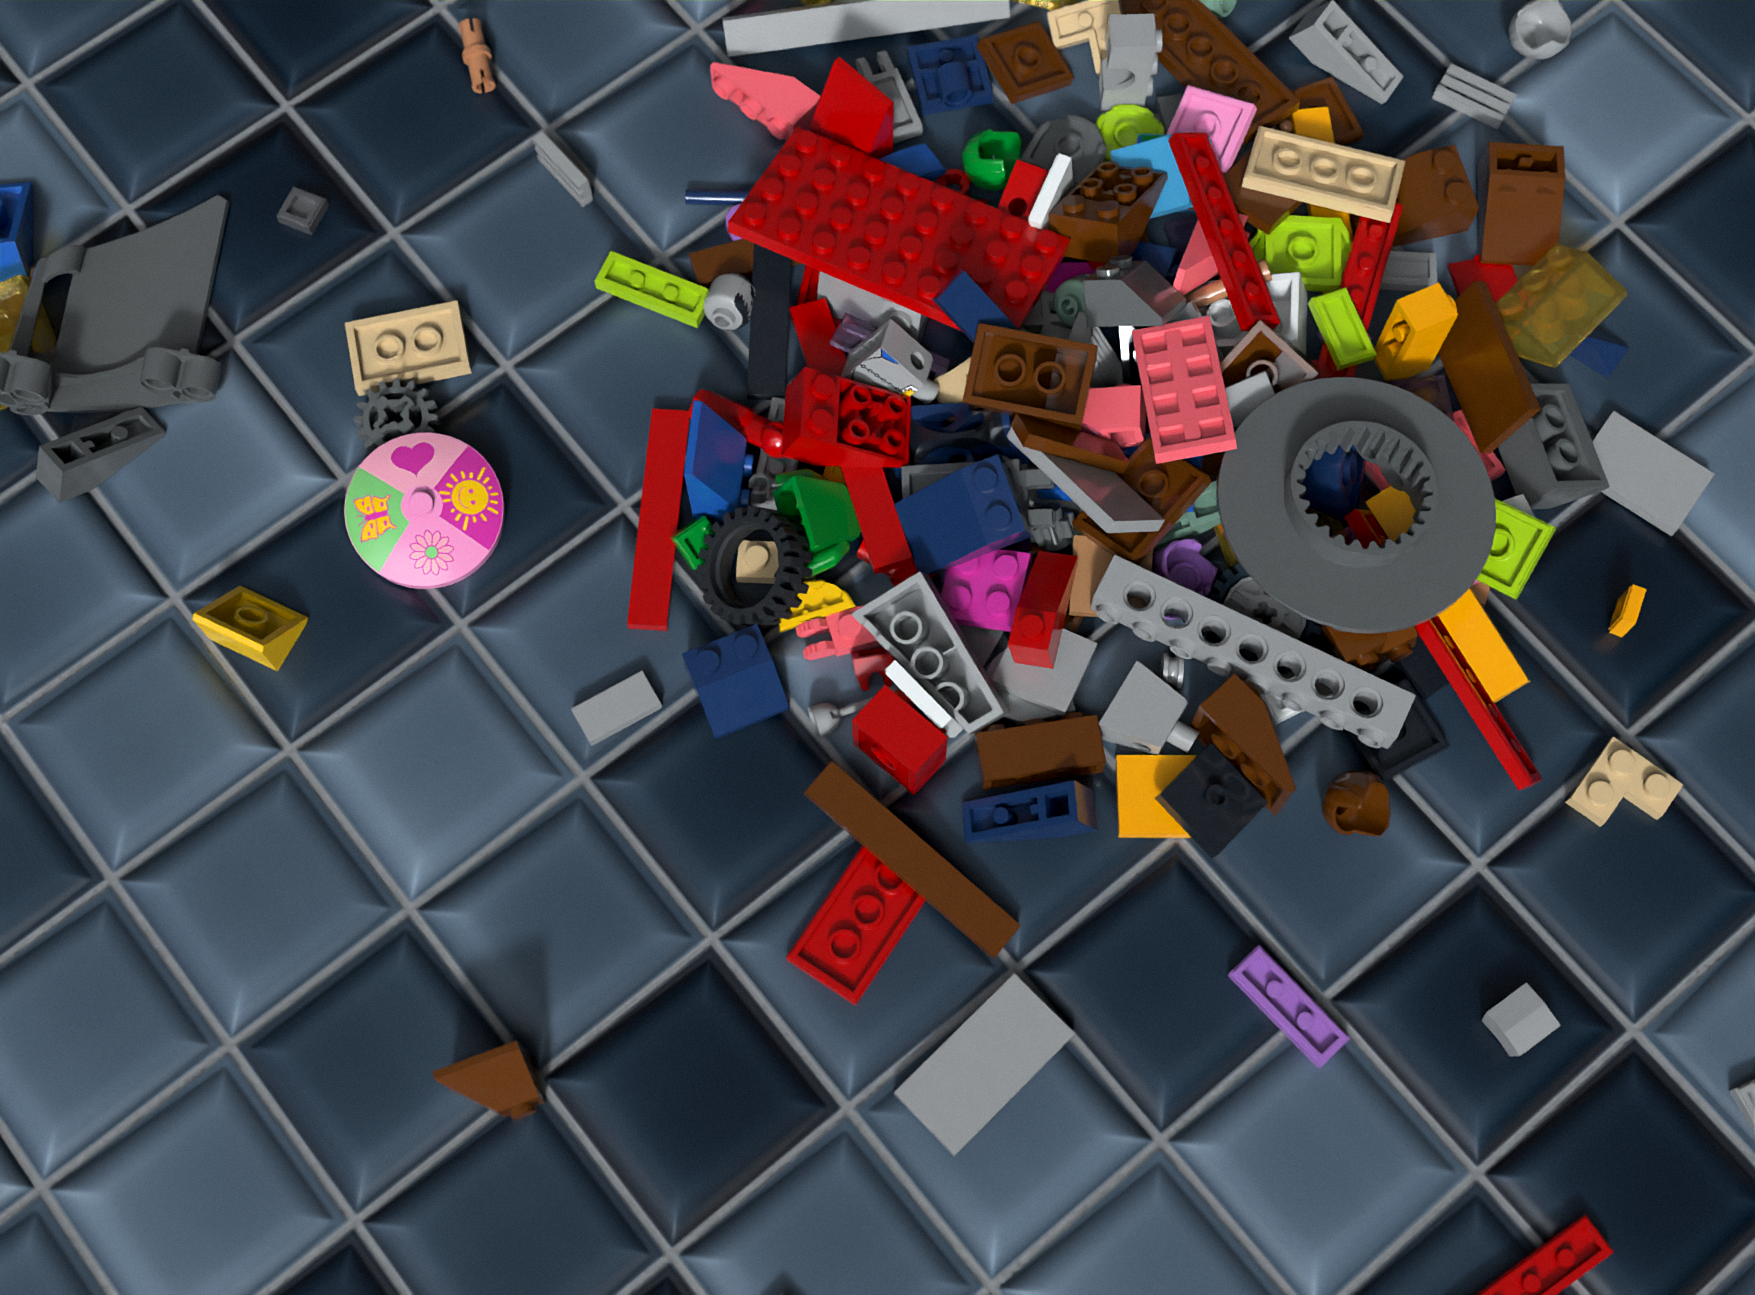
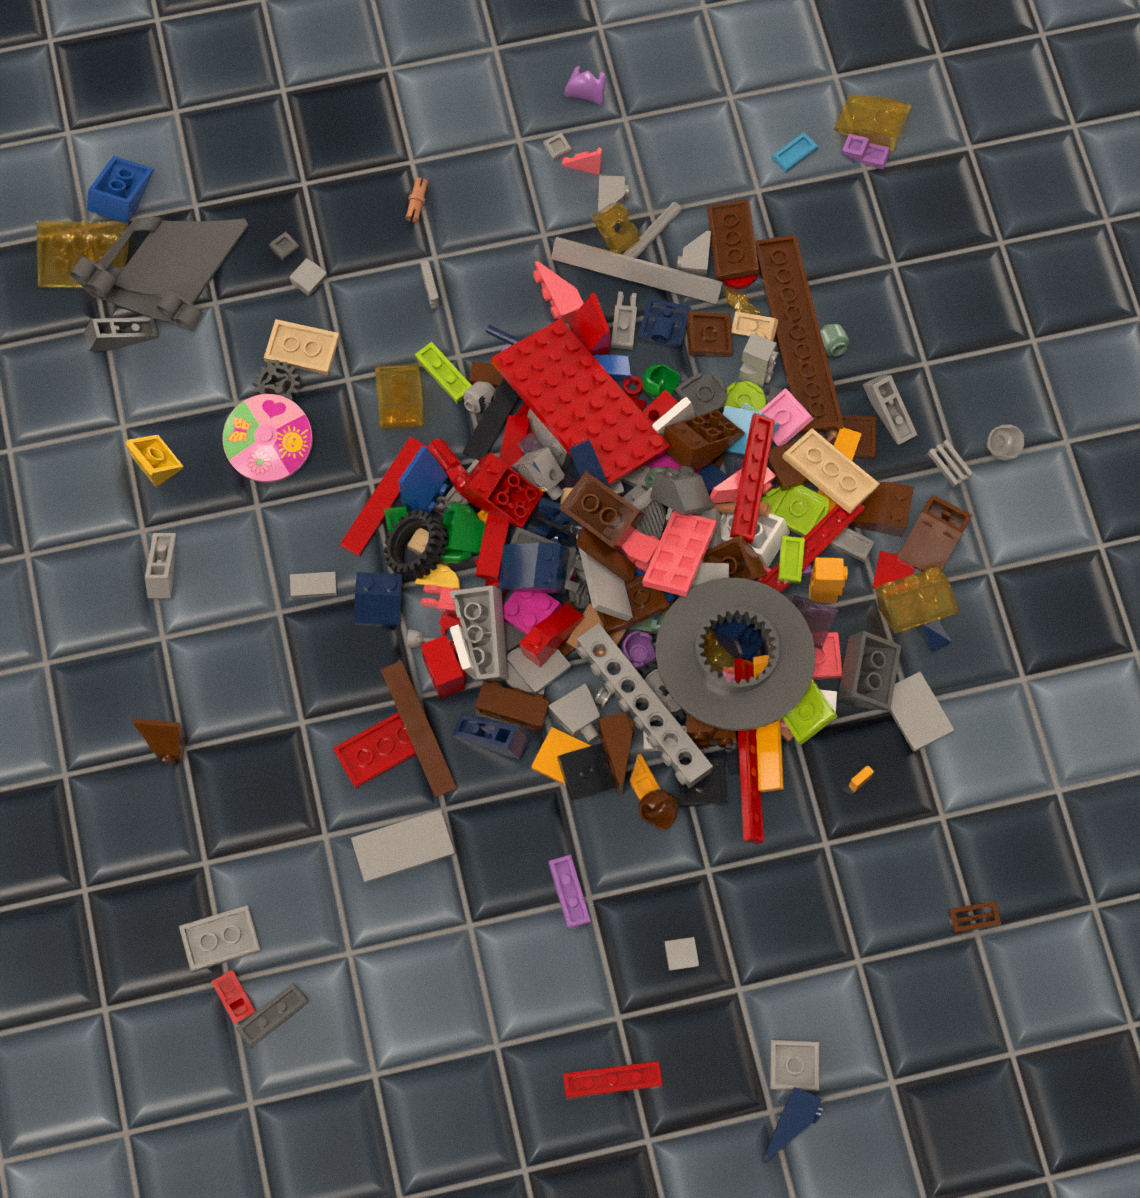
camera: 25 degrees right, 0 degrees up
(349, 793) = (160, 566): none -> light grey slope
(364, 238) = (308, 277): none -> light grey piece
(604, 354) = (399, 396): none -> clear yellow slope
(1307, 772) = (642, 779): none -> light orange tile
(1486, 370) = (856, 614): reddish brown tile -> none
(1621, 774) = (806, 859): tan plate -> none

